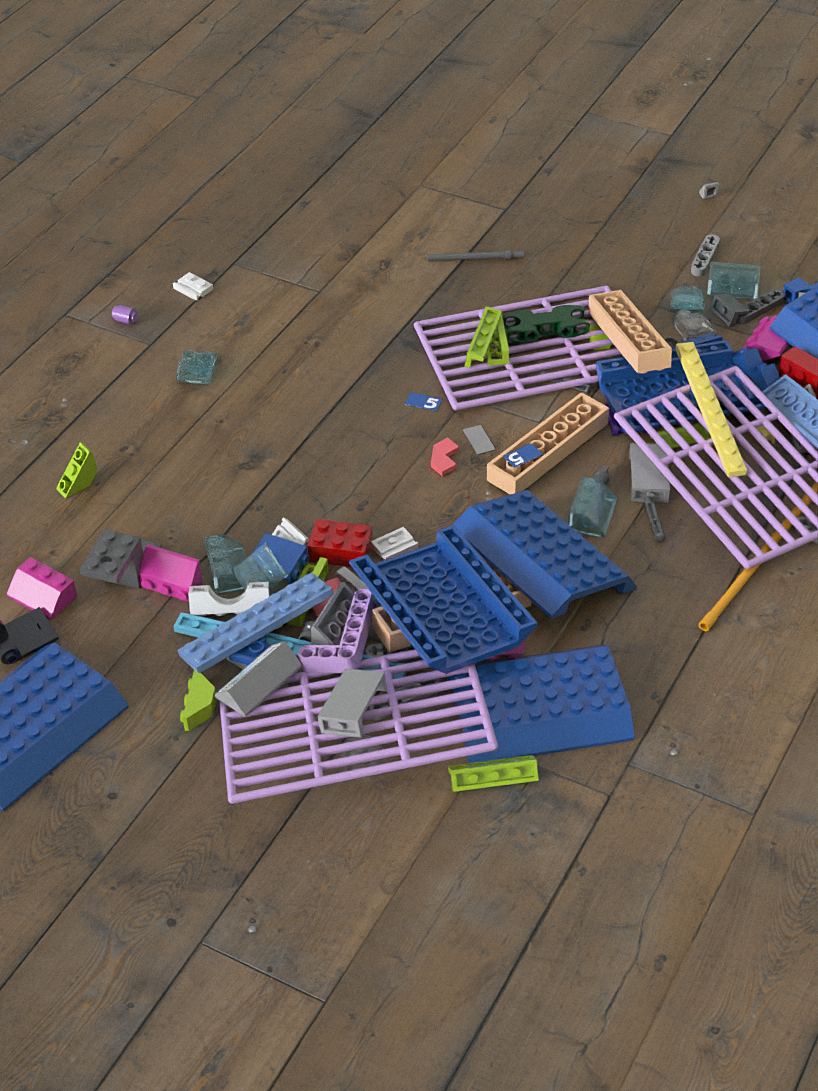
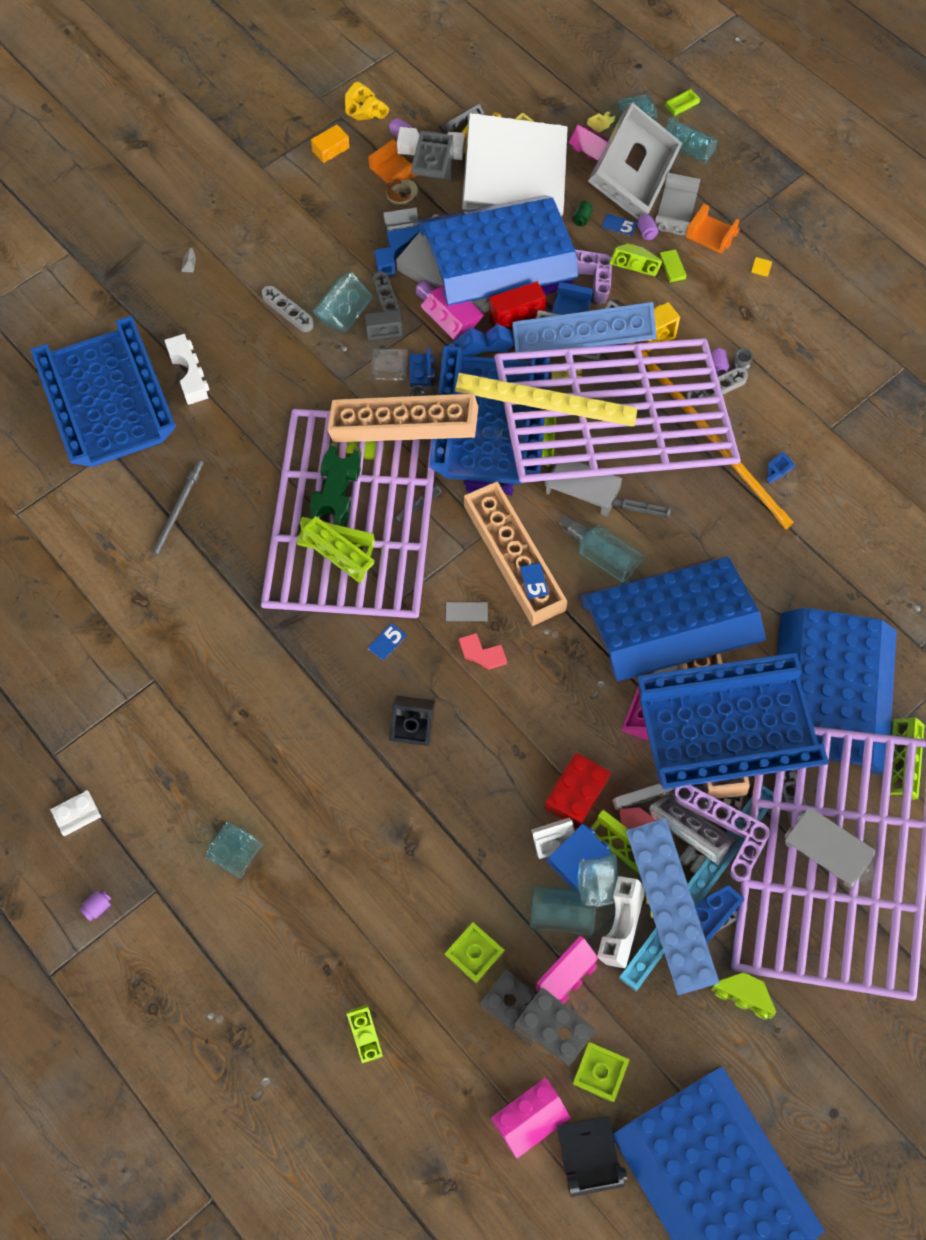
camera: 70 degrees left, 20 degrees up
(94, 624) = (601, 1072): none -> lime plate
(168, 521) = (474, 952): none -> lime plate
(260, 679) = (751, 927): light grey slope -> none
(356, 429) = (412, 720): none -> black slope
(394, 544) = (594, 740): white plate -> none
(543, 183) = (104, 396): none -> blue slope
(591, 227) = (192, 384): none -> white arch
(687, 298) = (357, 352): clear light blue slope -> none
(765, 605) = (778, 467): none -> blue slope

